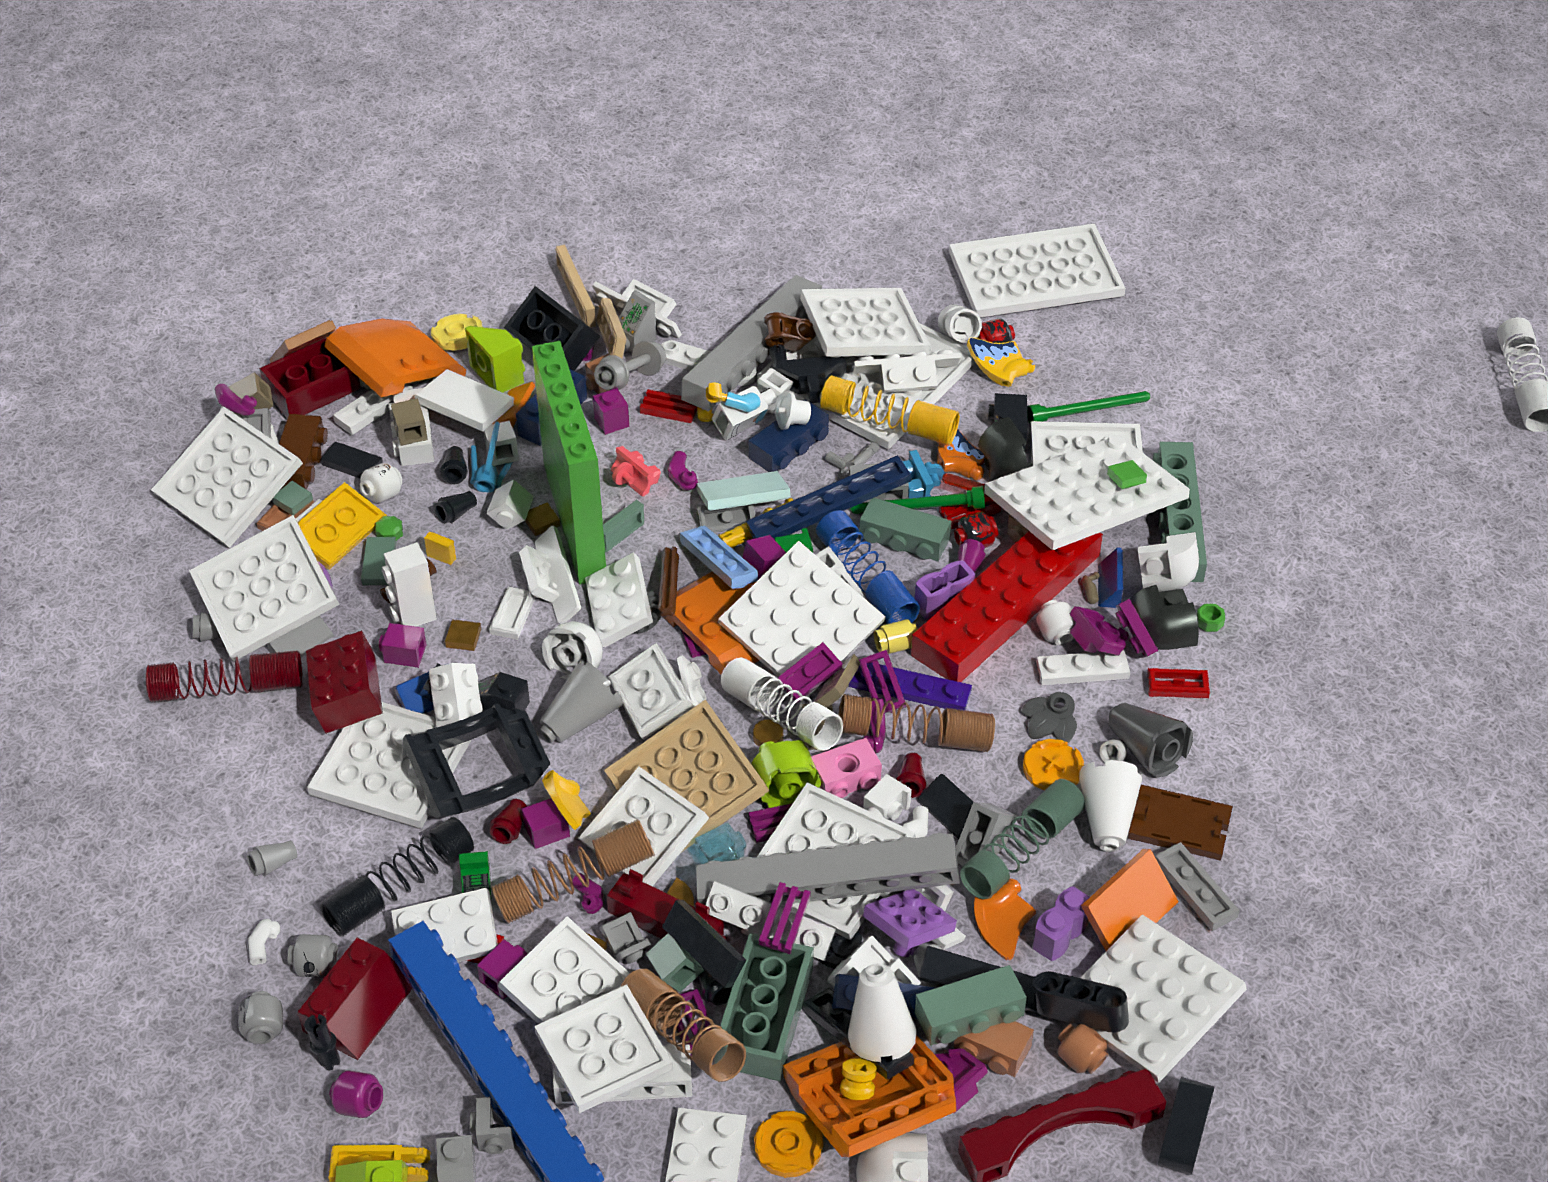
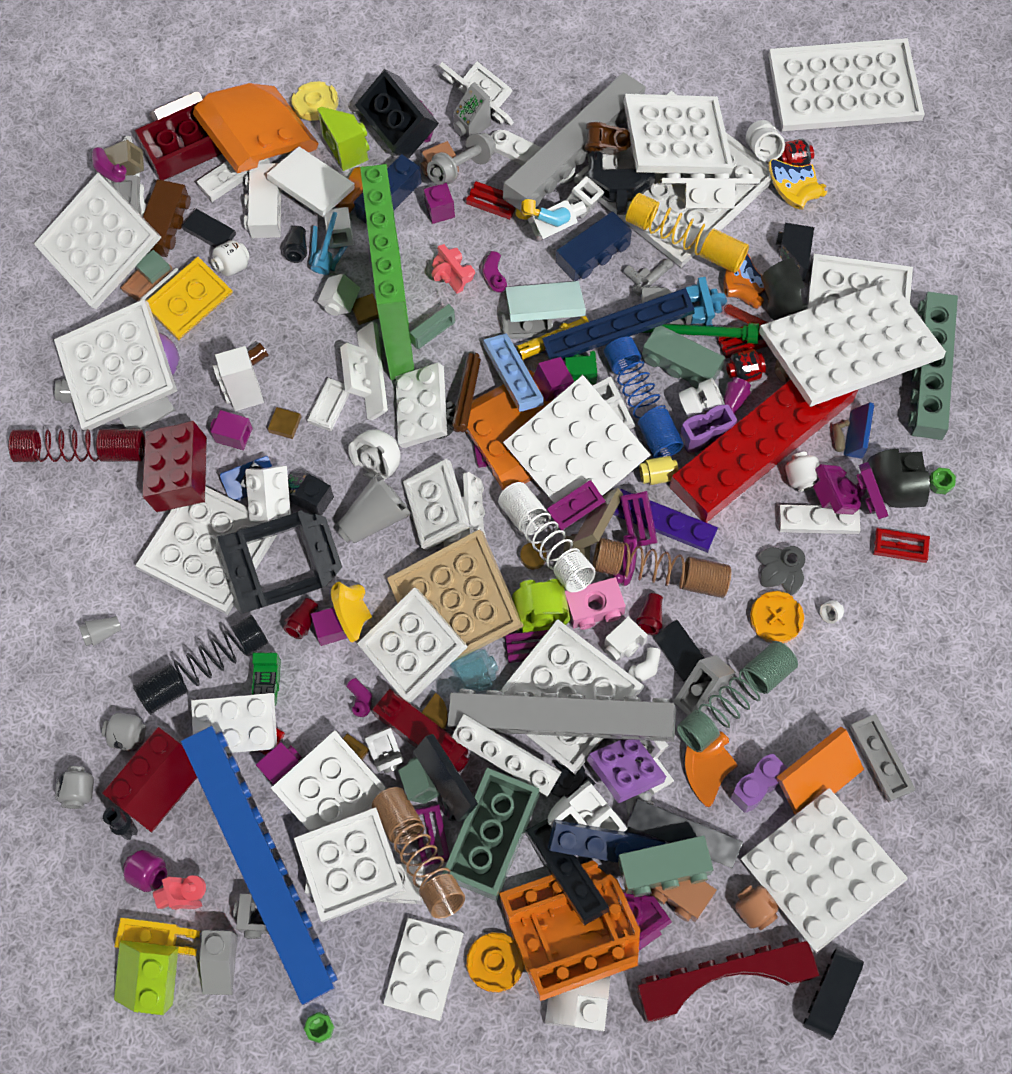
camera: 10 degrees right, 20 degrees up
(256, 942) = (81, 707): white arm -> none
(375, 560) = (220, 335): sand green tile -> none
(389, 527) = (233, 305): bright green tile -> none
(402, 1108) = (180, 893): none -> coral hips
(409, 422) = (258, 202): dark tan brick -> none
(440, 548) = (274, 332): yellow tile -> none
(454, 506) = (289, 290): black cone -> none
(575, 286) = (425, 63): tan tile -> none
(611, 328) = (449, 118): tan tile -> none
(613, 851) = (381, 673): medium nougat piece -> none
(791, 411) = (597, 227): white piece -> none
(792, 893) = (507, 783): magenta tile -> none
(858, 1079) = (563, 925): yellow wheel -> none
(880, 1016) = (585, 876): white cone -> none
(932, 560) = (692, 397): none -> white wheel
(1041, 413) = (823, 244): green piece -> none
(1081, 1001) = (767, 884): black beam -> none
(1110, 801) = (820, 669): white cone -> none
(1127, 474) = (890, 333): bright green tile -> none
(1151, 737) = (866, 603): dark grey cone -> none
(1171, 563) = (914, 431): white brick -> none
(1172, 818) = (879, 688): reddish brown piece -> none

